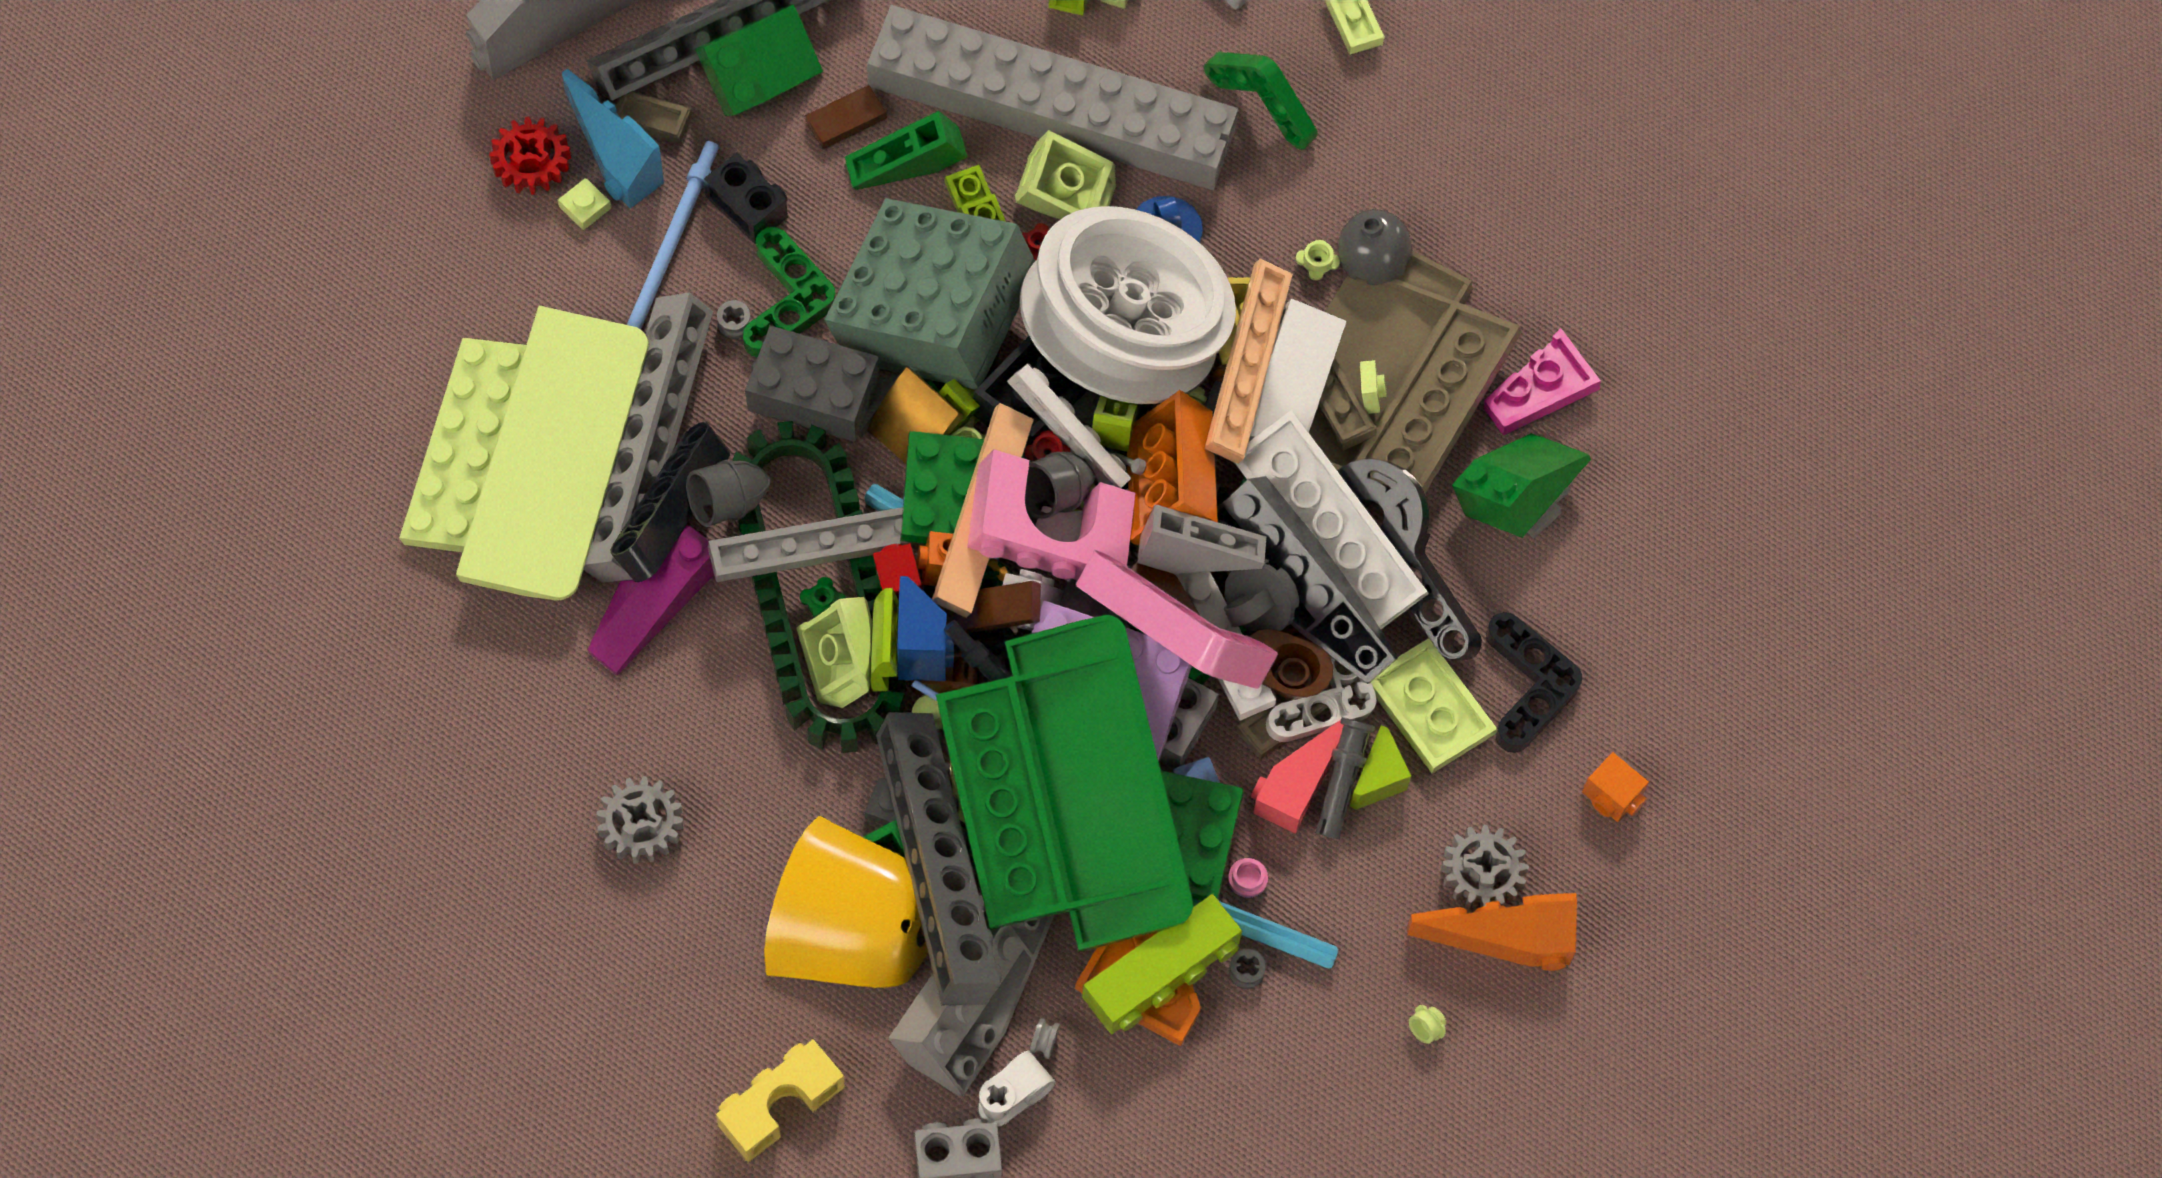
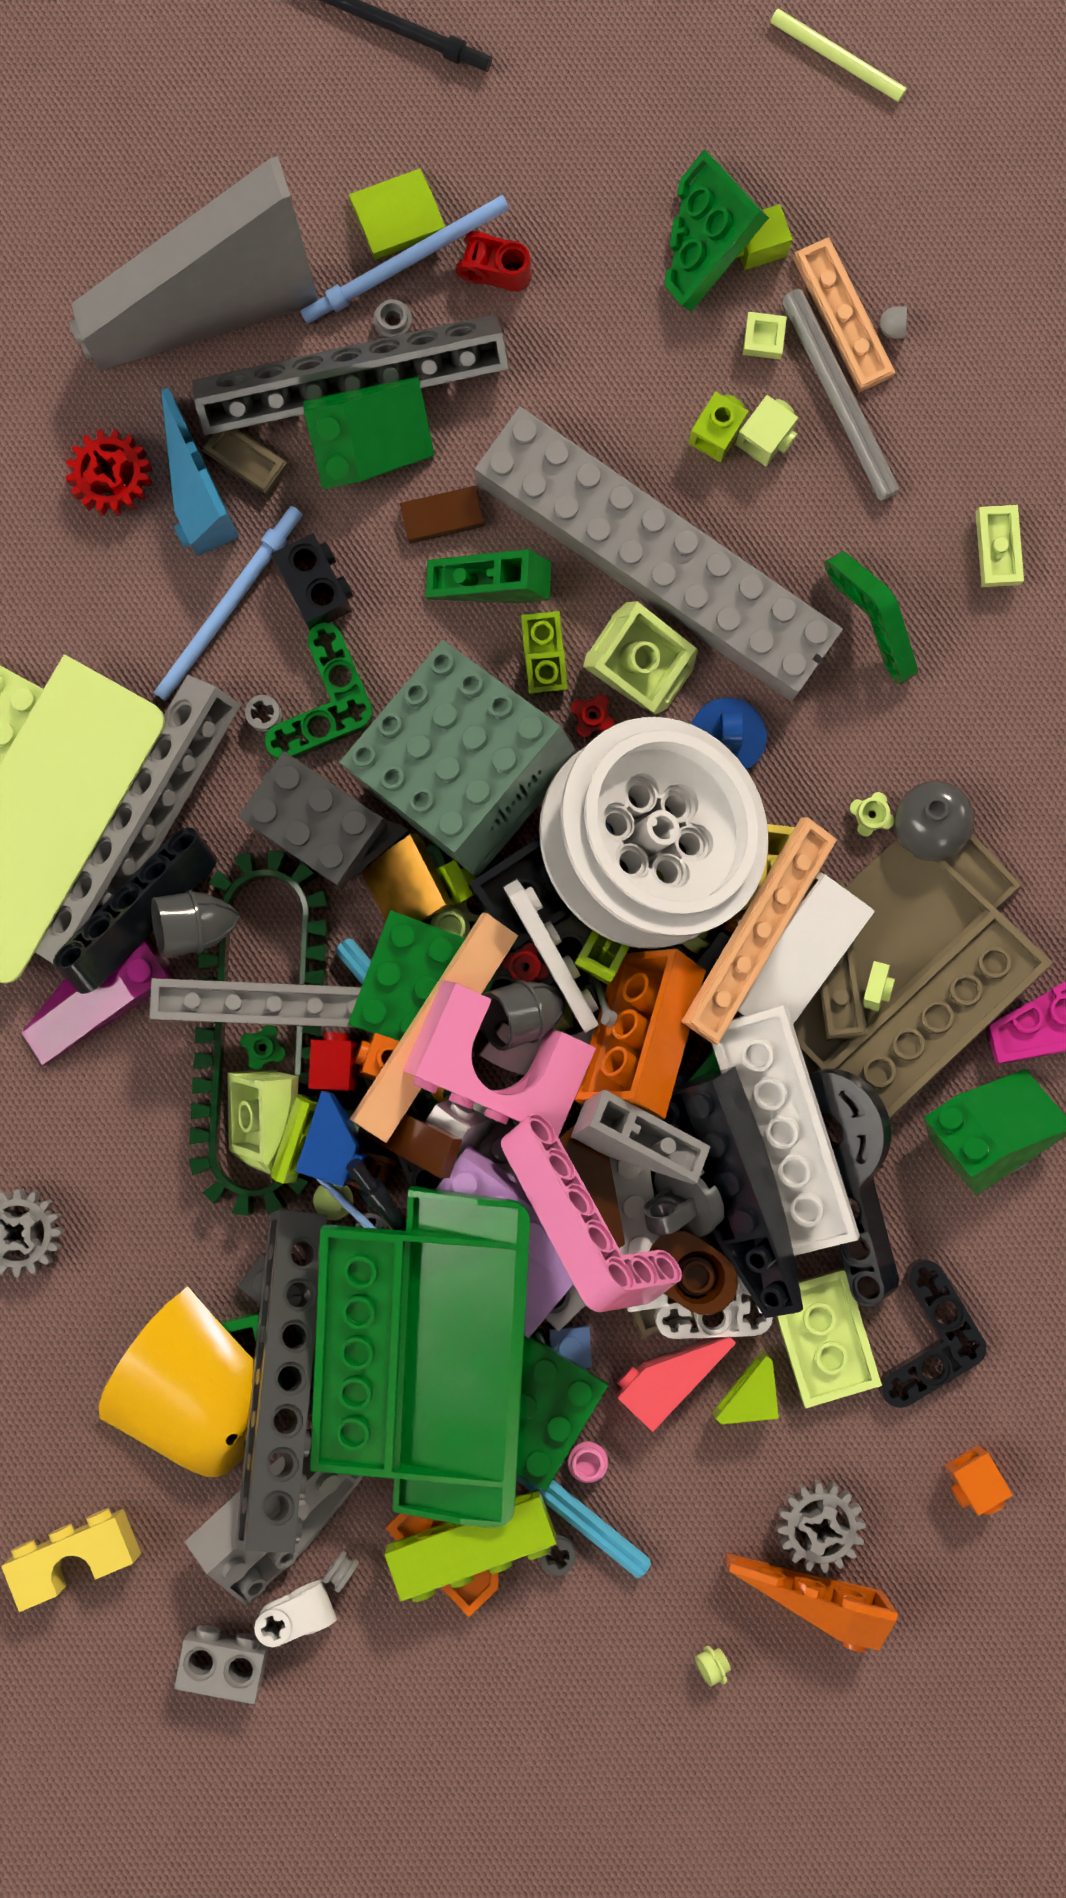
camera: 20 degrees right, 20 degrees up
(584, 204) = (151, 540): yellowish green plate -> none
(1347, 759) = (721, 1385): dark grey pin -> none

